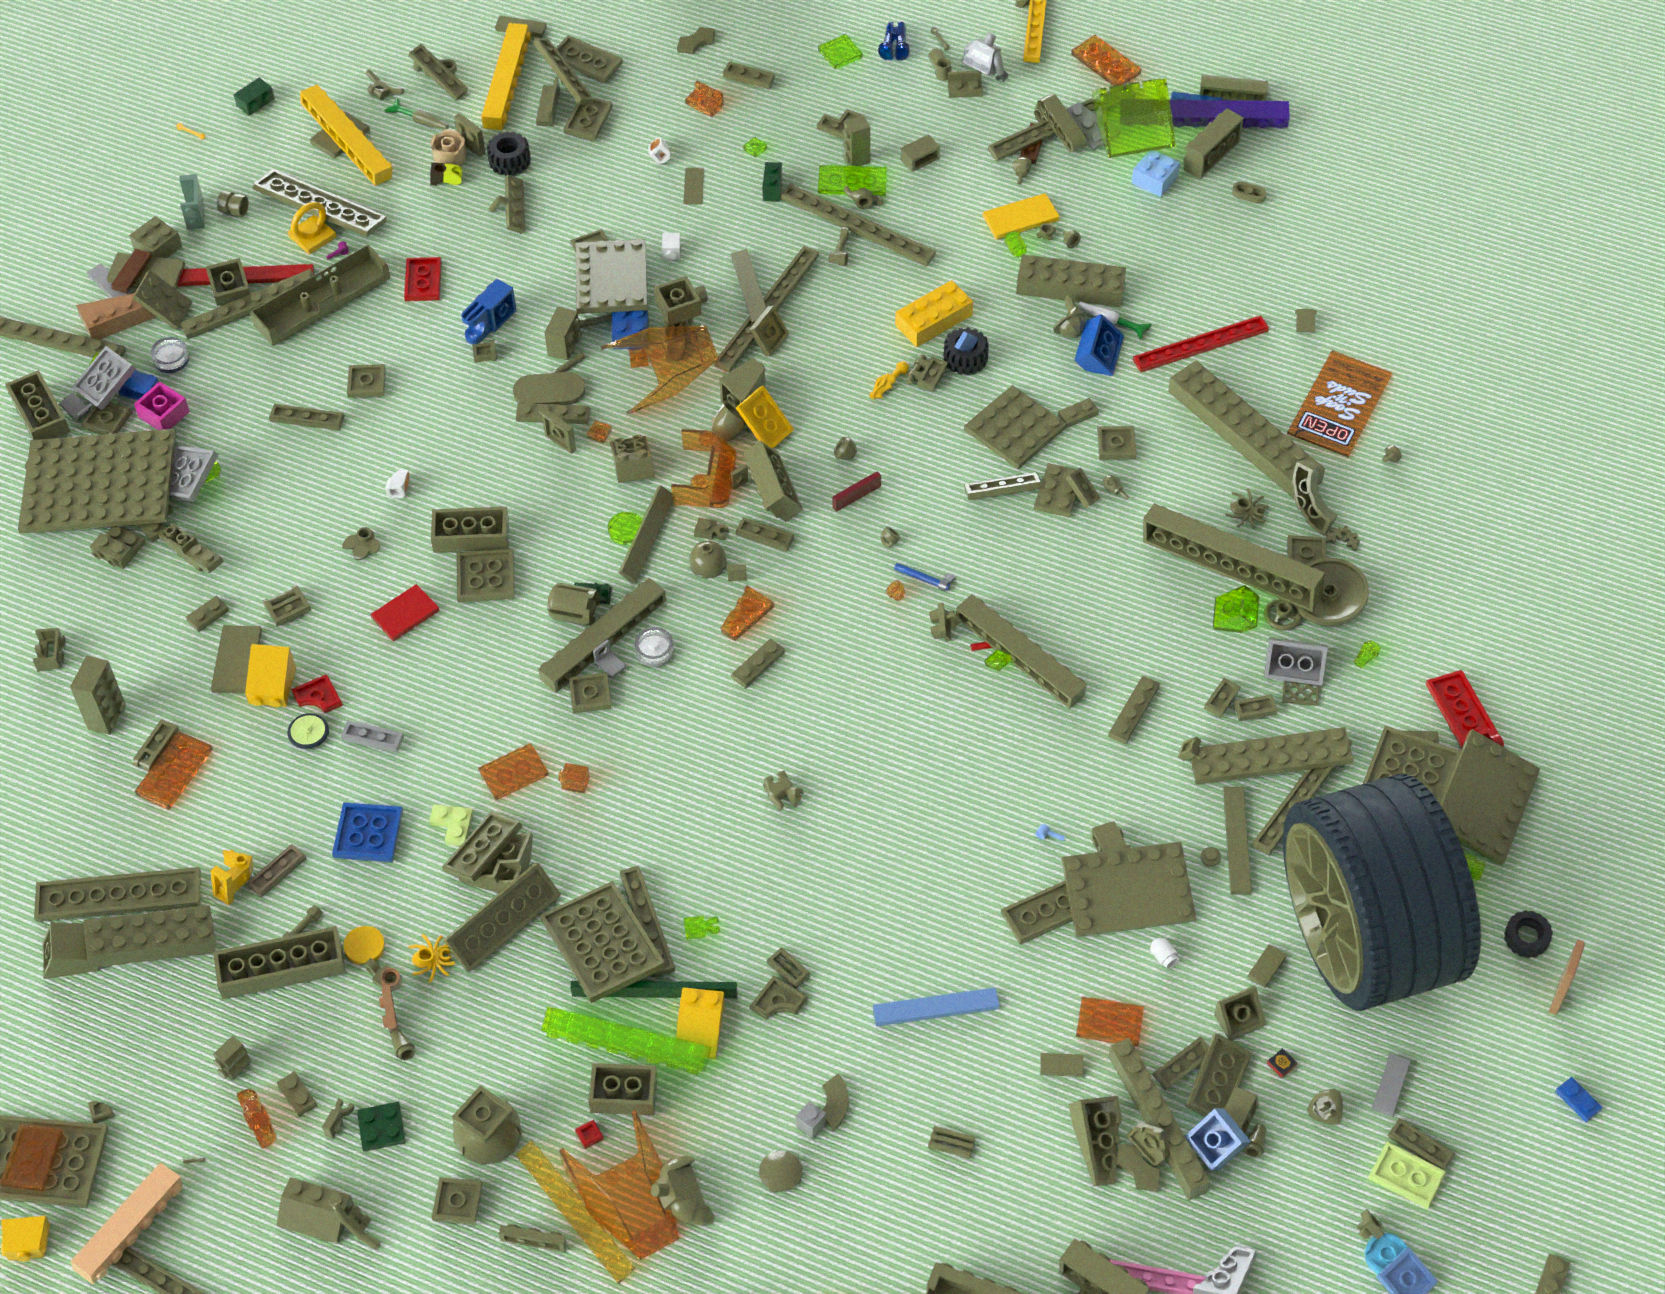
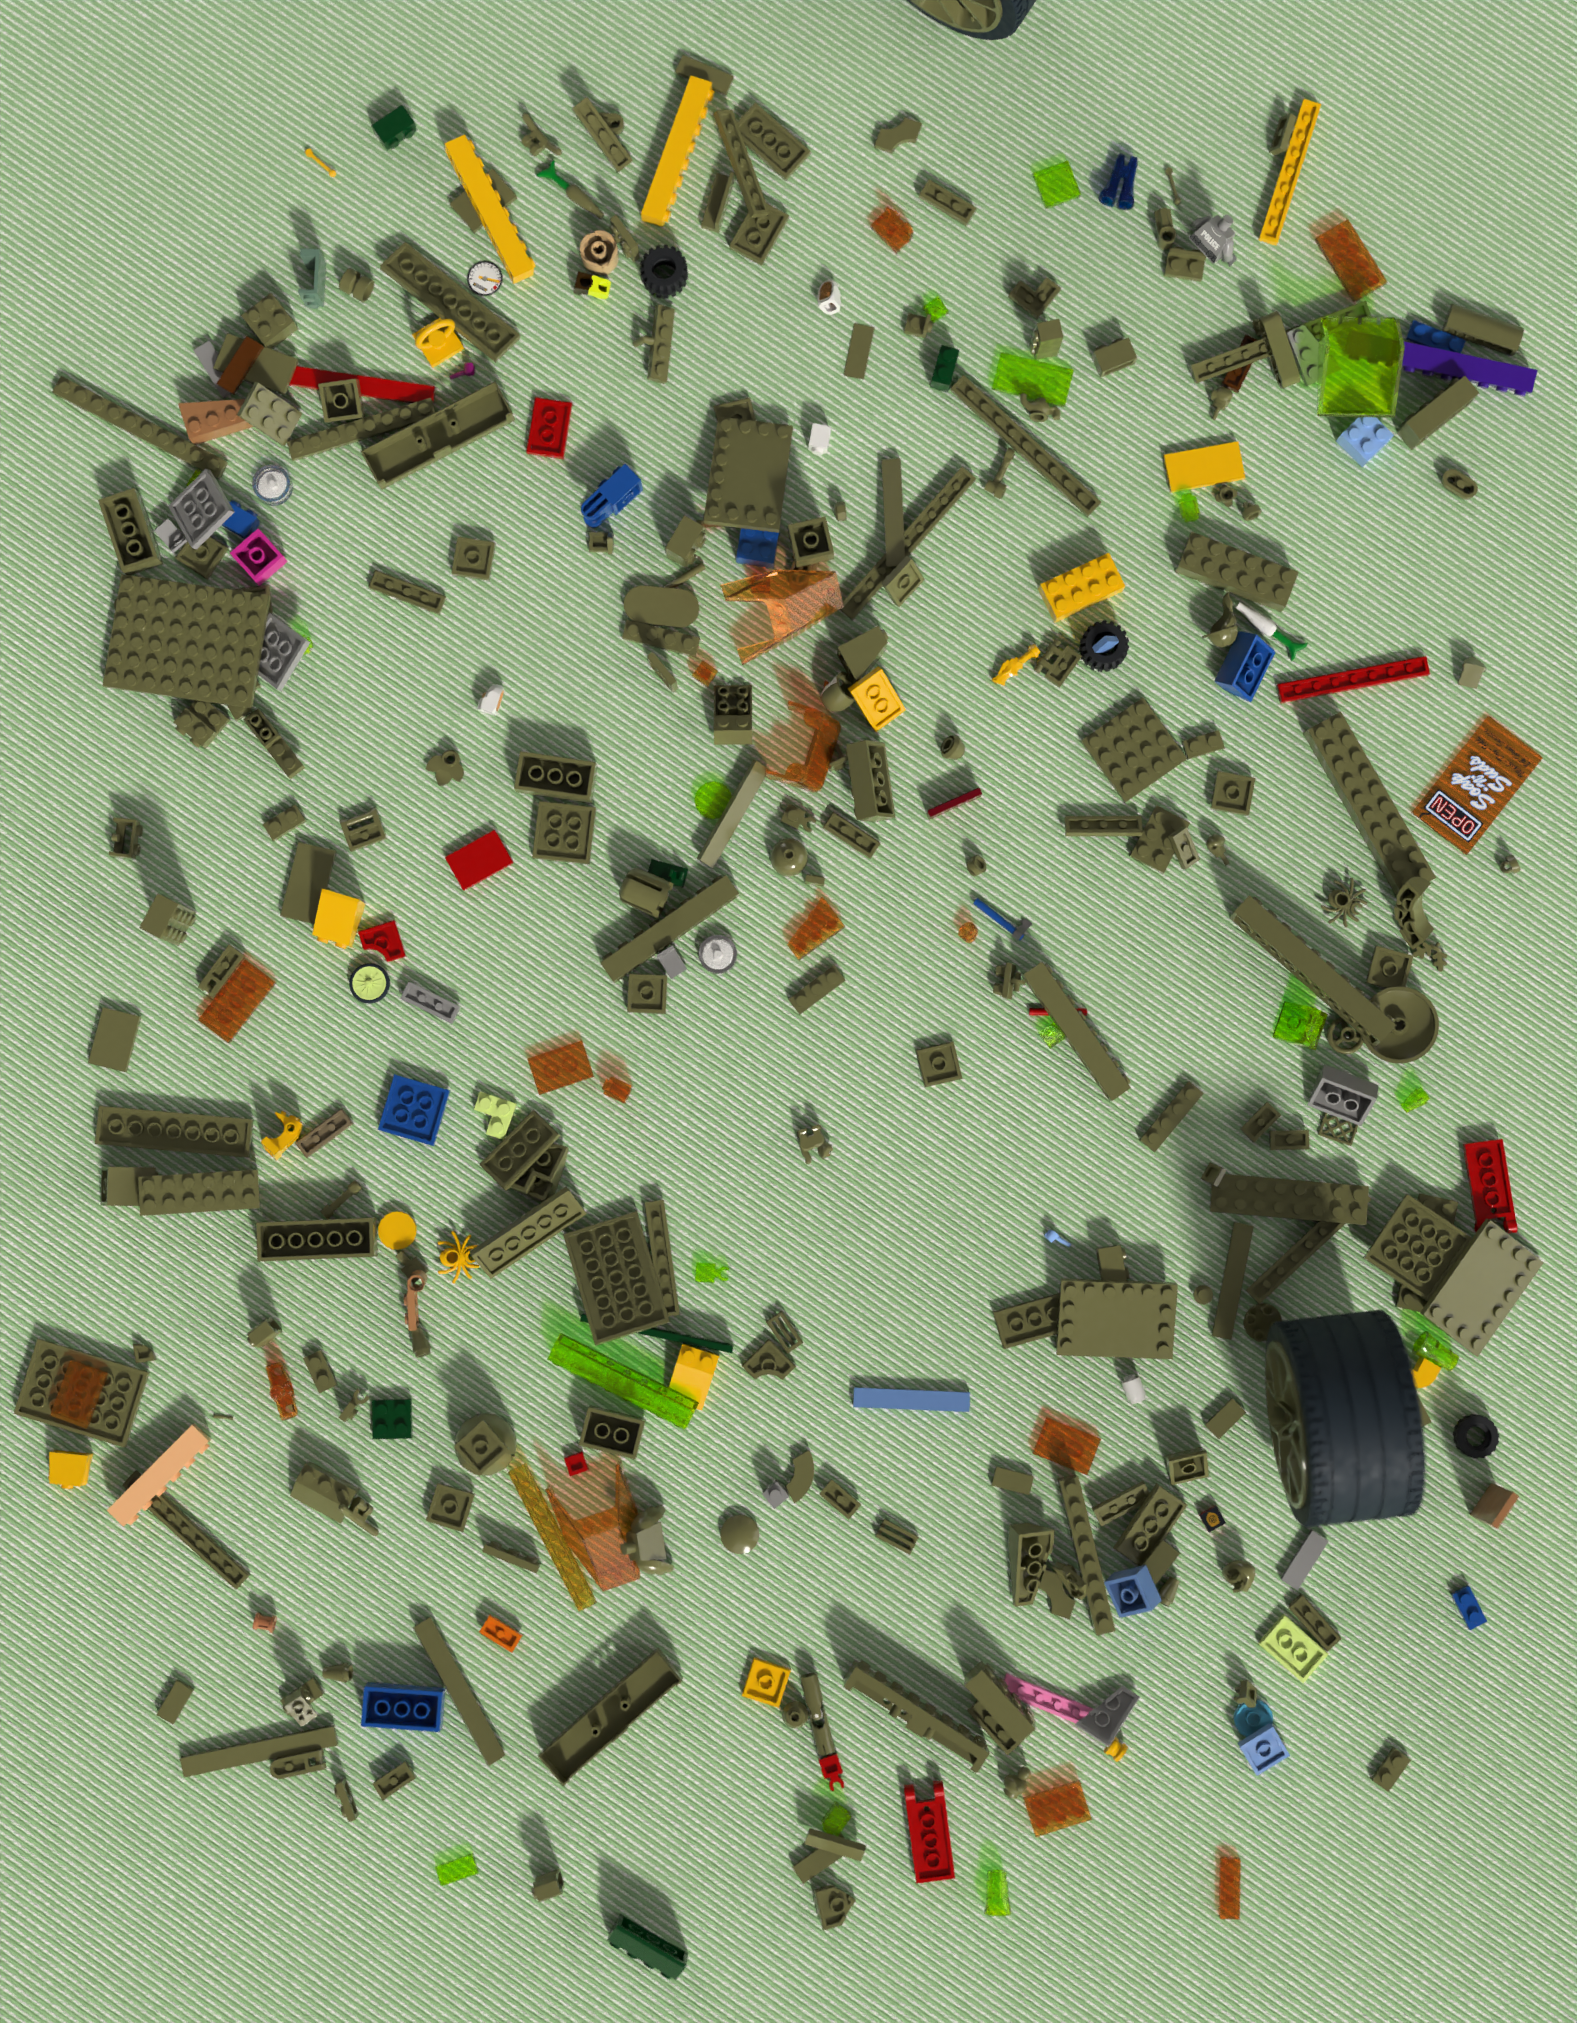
camera: 10 degrees right, 30 degrees up
(48, 824) = (114, 1039): none -> olive tile
(348, 186) = (484, 278): none -> white sticker
(742, 160) = (918, 325): none -> olive bracket
(881, 1114) = (840, 1499): none -> olive plate
(893, 705) = (939, 1064): none -> olive tile
(1272, 870) = (1259, 1320): none -> olive dish

